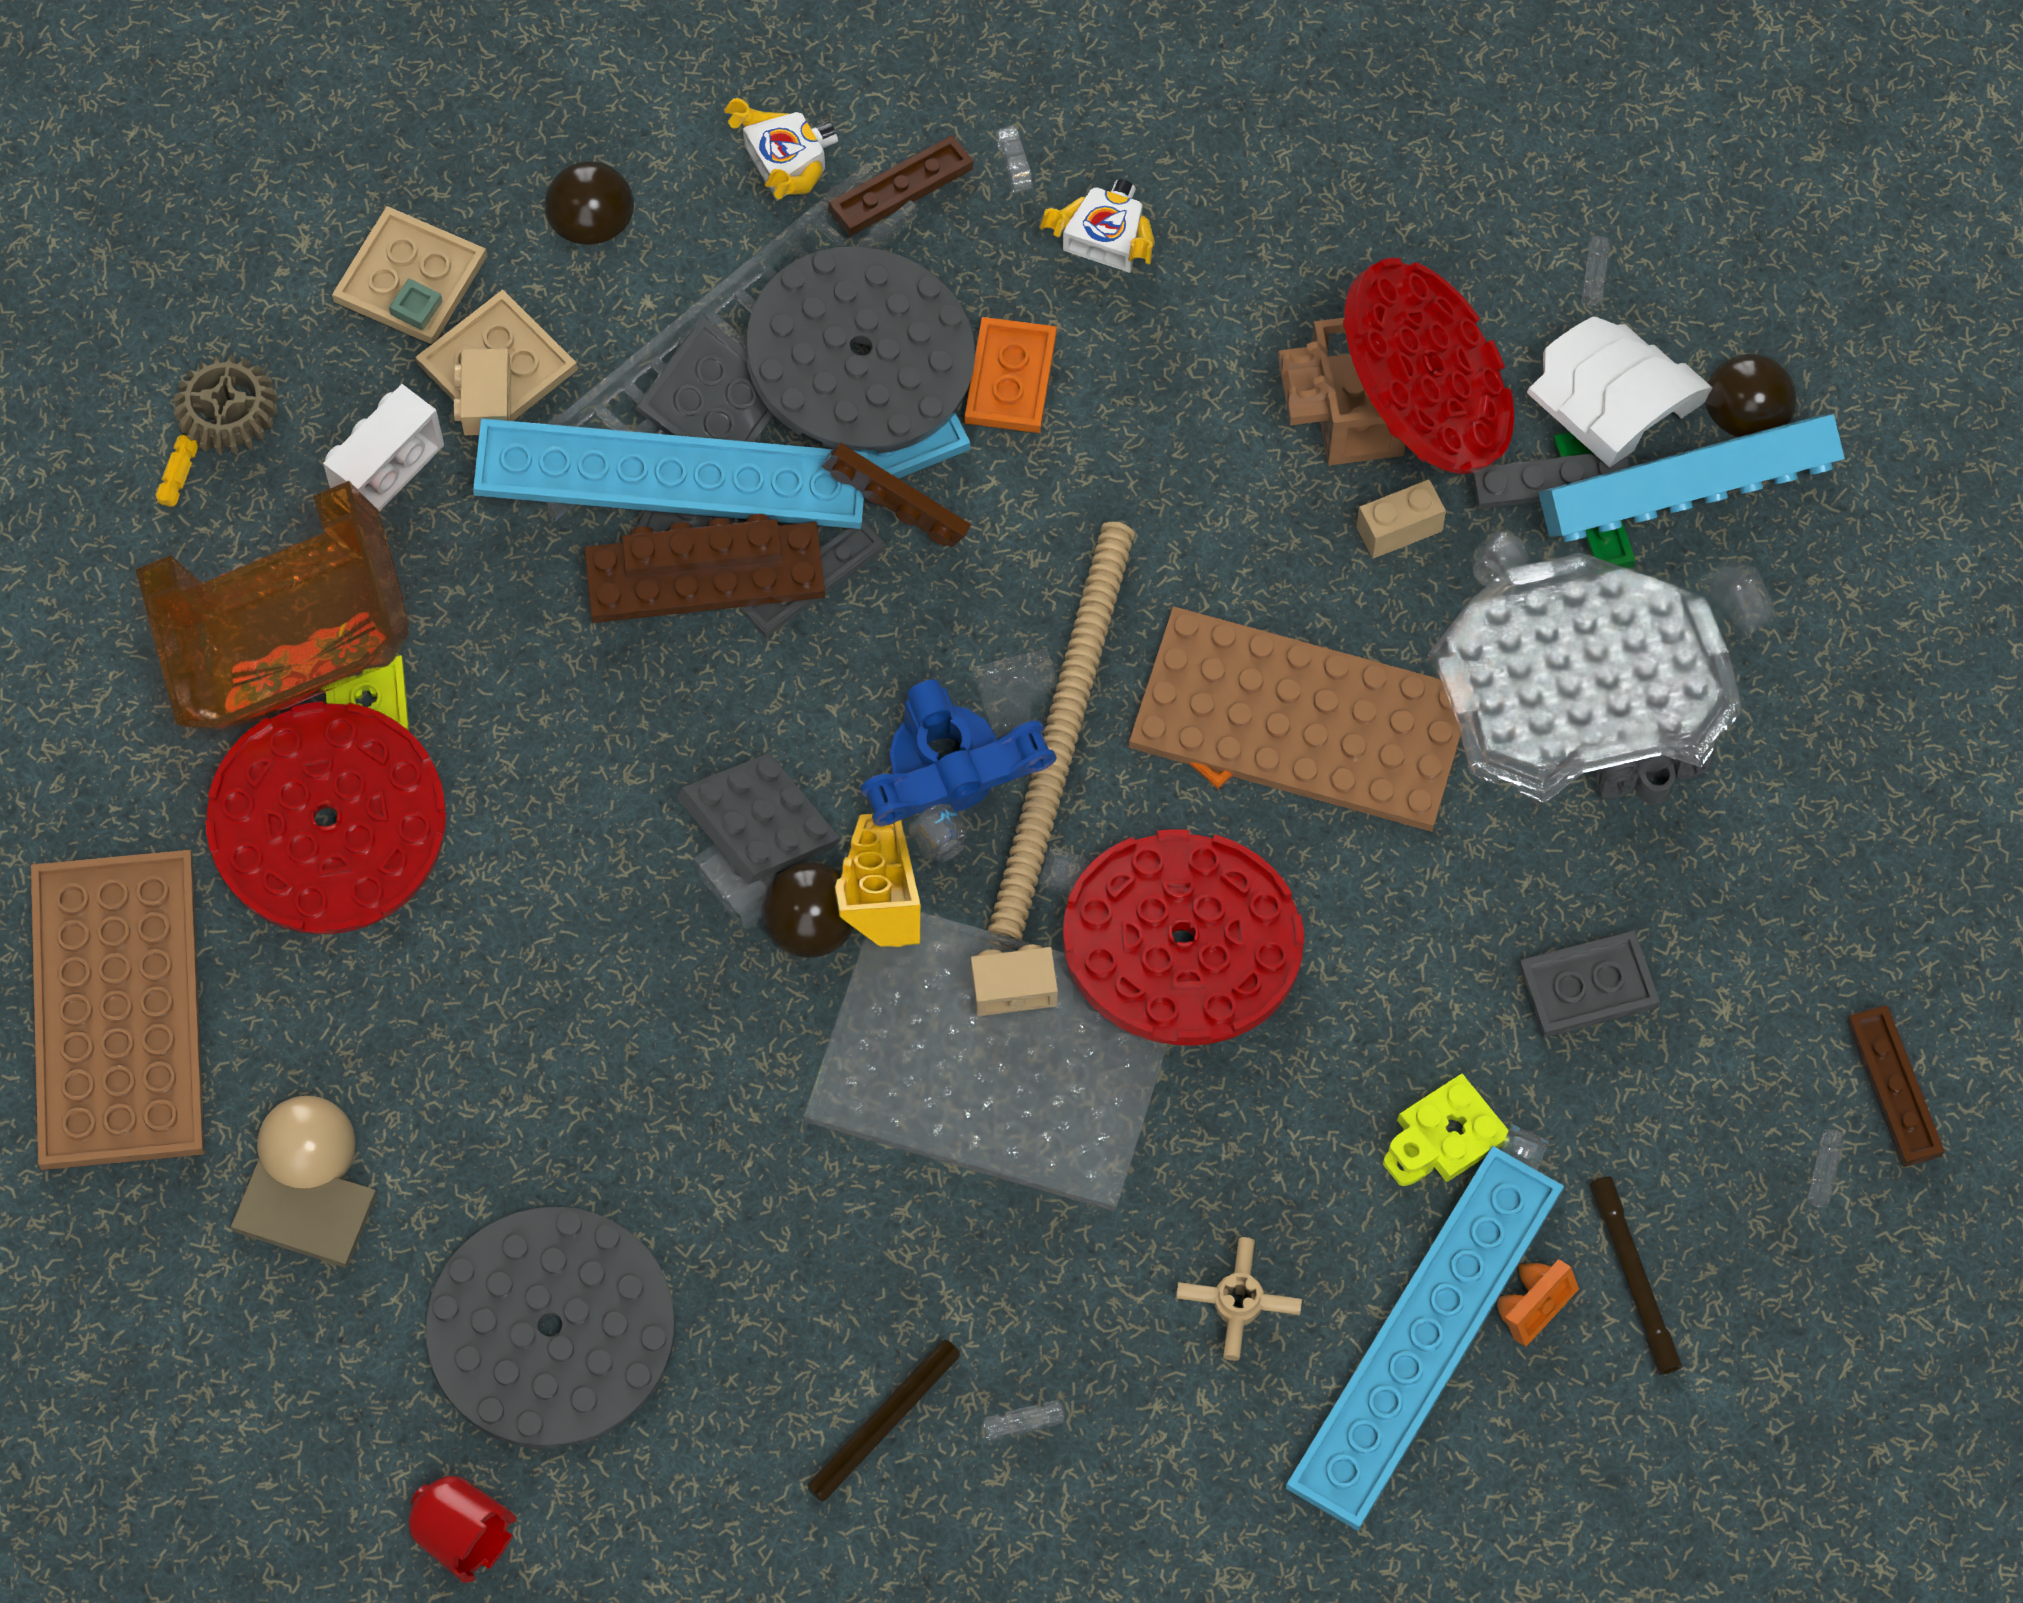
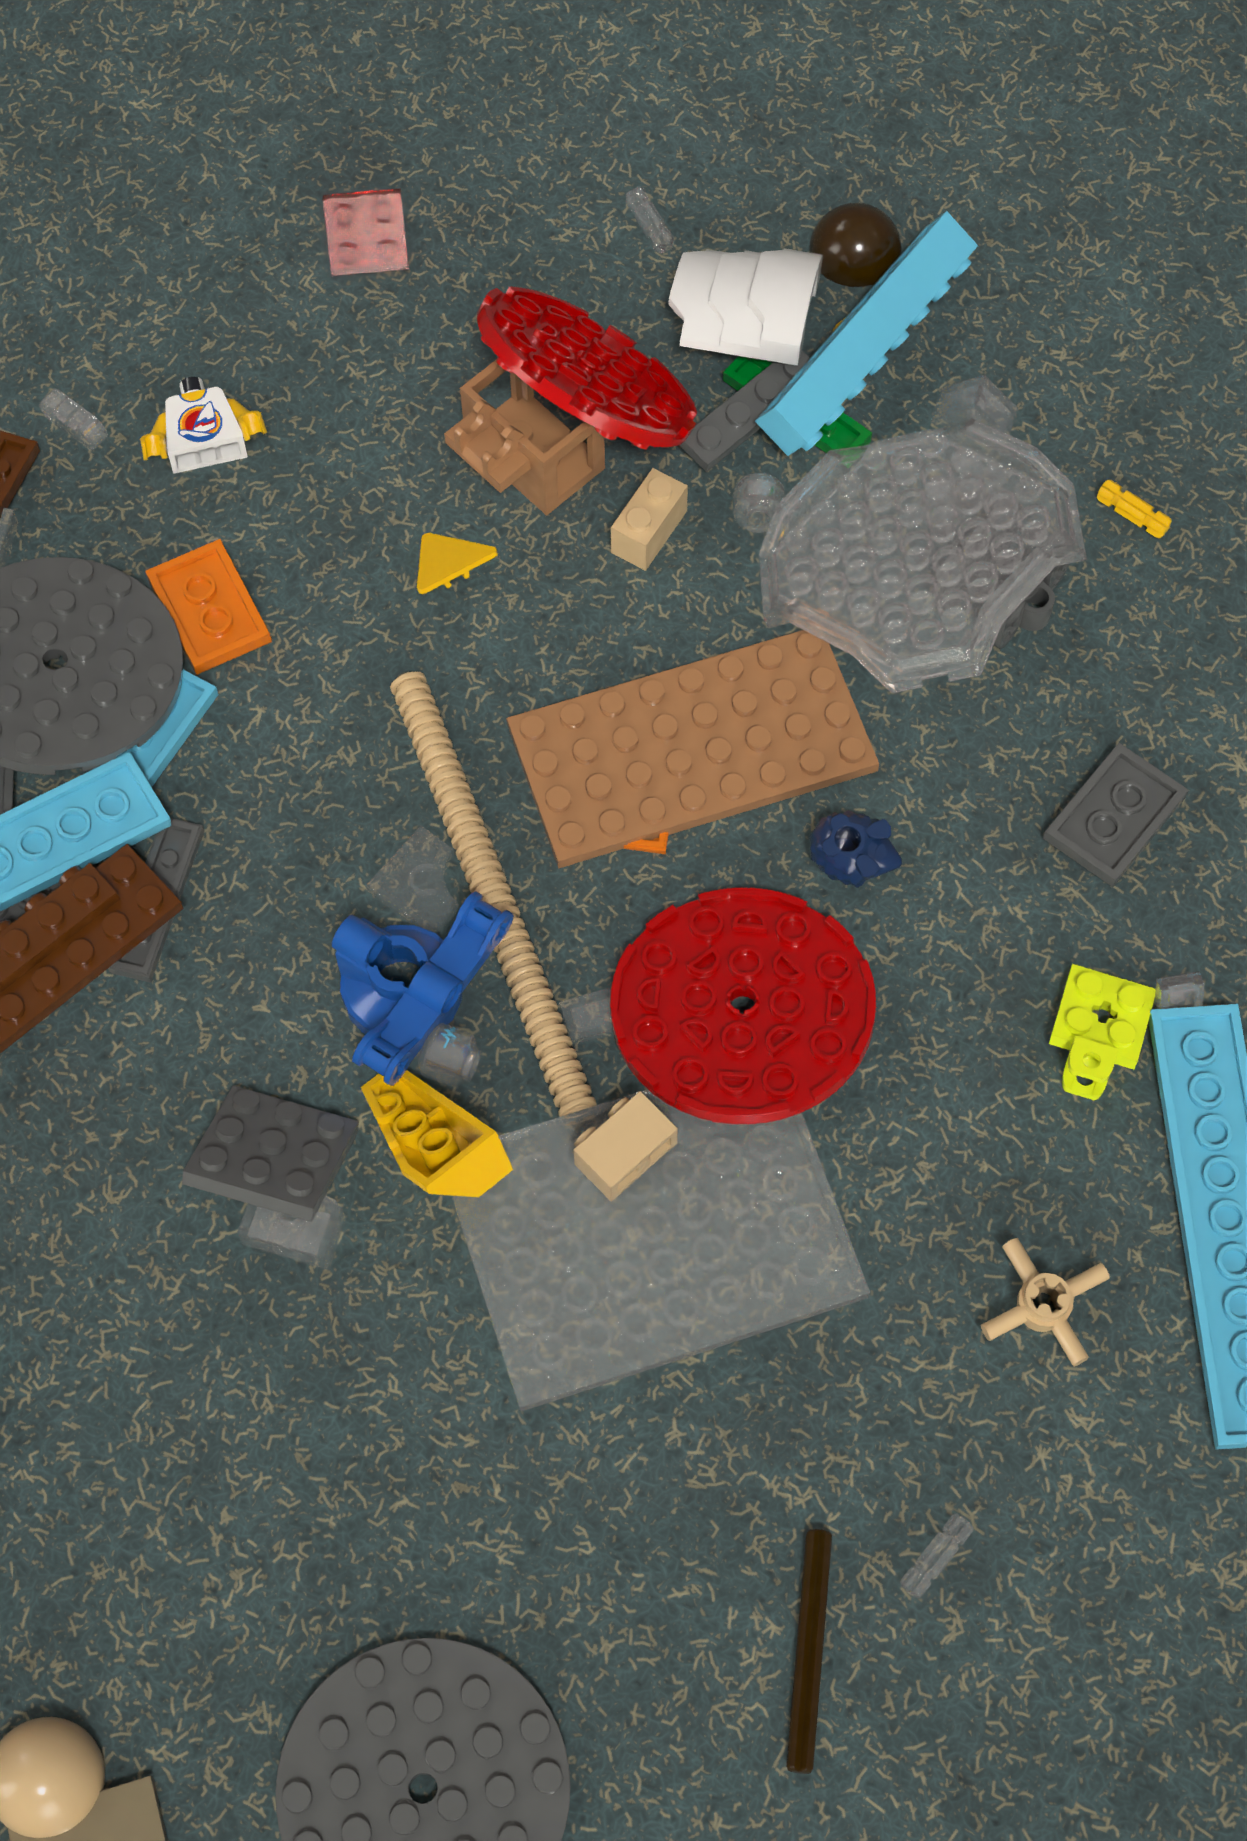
camera: 35 degrees left, 0 degrees up
(804, 911) = (378, 1209): dark brown piece -> none
(887, 490) = (185, 773): reddish brown plate -> none
(1220, 452) = (447, 558): none -> yellow piece
(1350, 143) = (365, 232): none -> clear red plate
(1357, 875) = (853, 847): none -> dark blue animal
(1804, 756) = (1134, 508): none -> yellow axle

